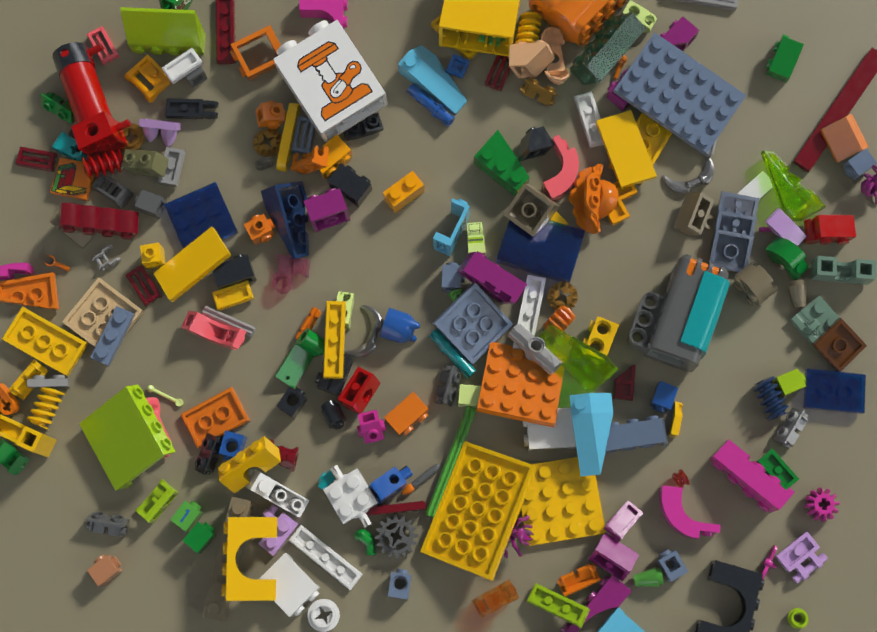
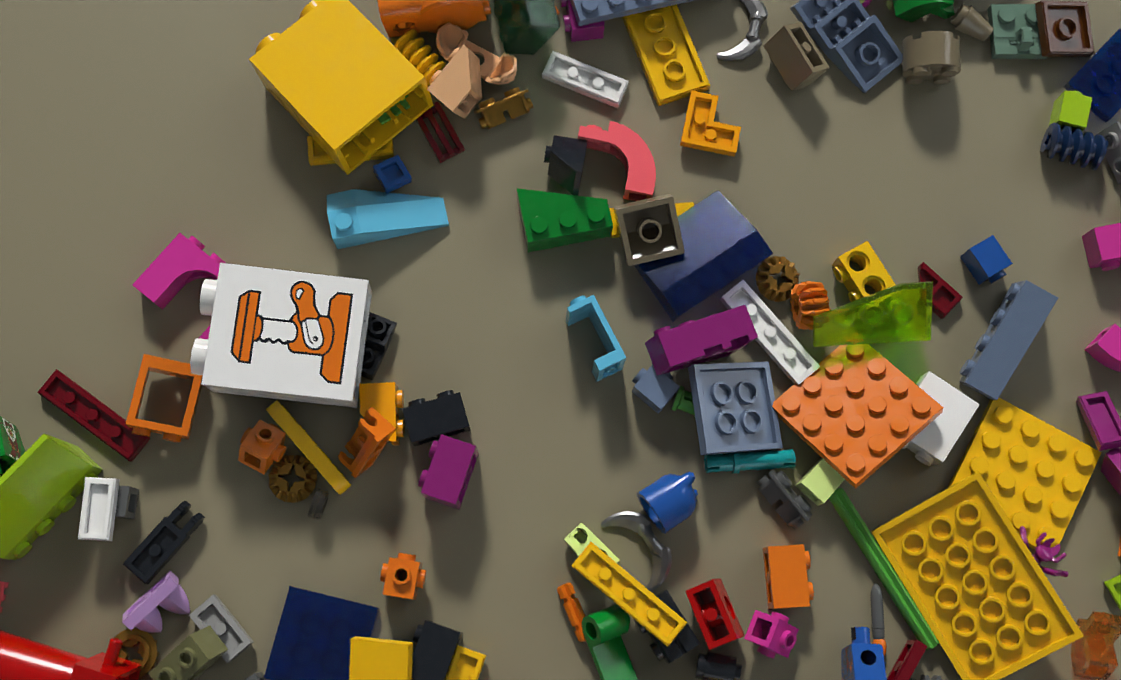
camera: 60 degrees left, 0 degrees up
(152, 73) = (70, 556): light orange plate -> none
(287, 211) = (406, 525): dark blue wedge -> none
(289, 267) = (481, 577): clear pink piece -> none
(301, 150) = (338, 444): sand blue tile -> none
(403, 191) = (499, 360): light orange brick -> none
(436, 110) = (425, 241): blue pin -> none
(475, 237) = (630, 323): yellowish green leg -> none
(542, 356) = (843, 356): light grey piece -> none
(591, 425) = (971, 365): medium azure wedge -> none
(592, 199) = (697, 140): orange piece -> none
(626, 149) = (657, 68): yellow tile -> none
(676, 420) = (1026, 269): yellow tile -> none
(680, 478) = (1096, 317): clear red bush -> none
(684, 317) = (913, 159): dark grey piece -> none

